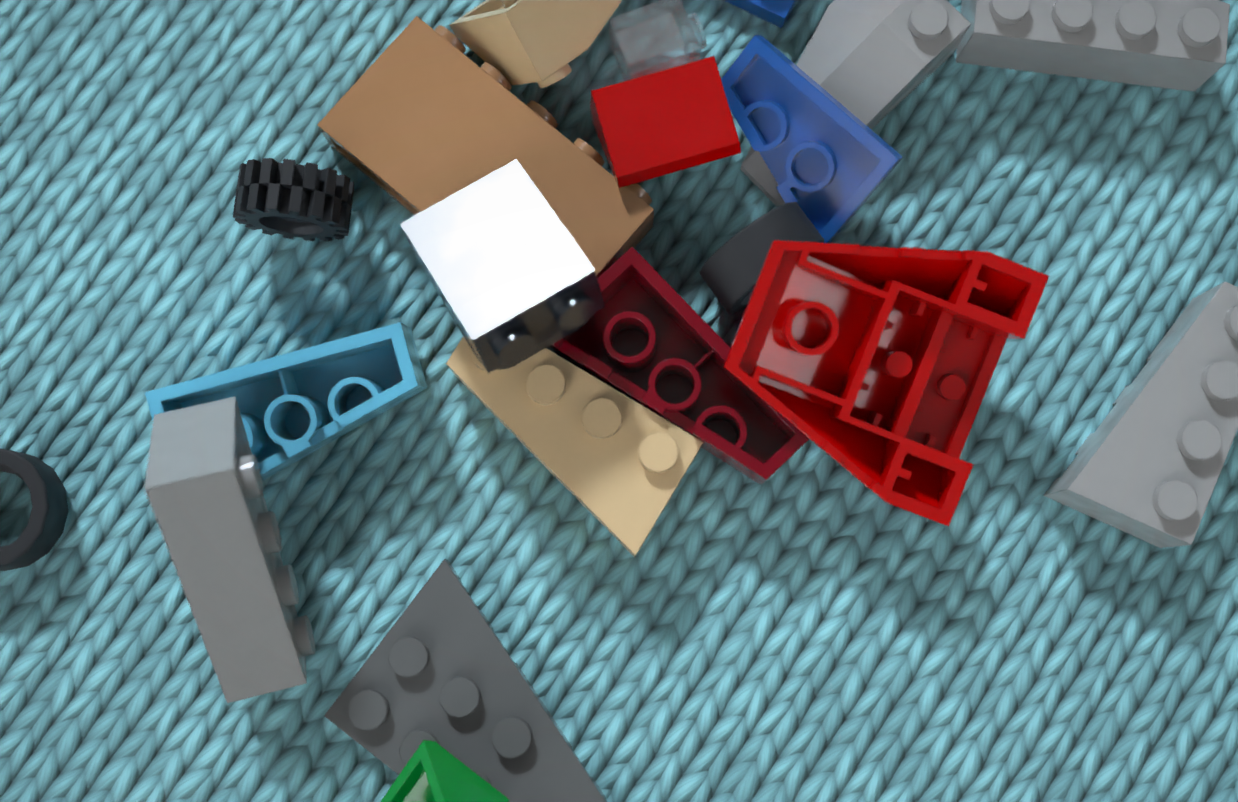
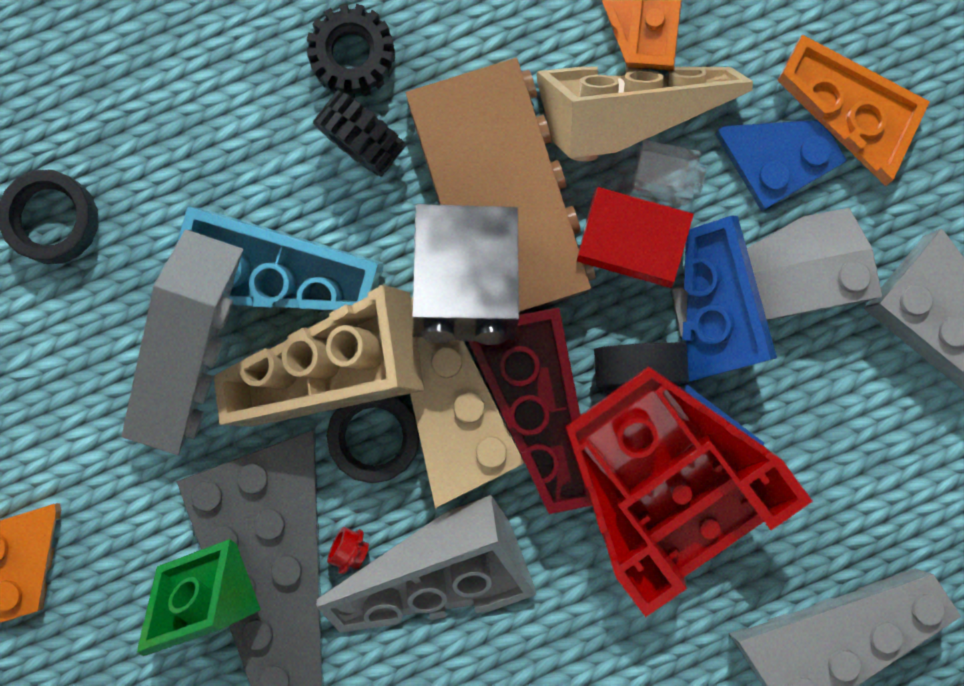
camera: 25 degrees right, 5 degrees up
(214, 96) = (345, 23): none -> black tyre
(423, 460) = (341, 362): none -> tan wedge
(473, 502) = (369, 473): none -> black tyre
(567, 669) = (348, 550): none -> red plate
(689, 614) = (448, 564): none -> light grey wedge

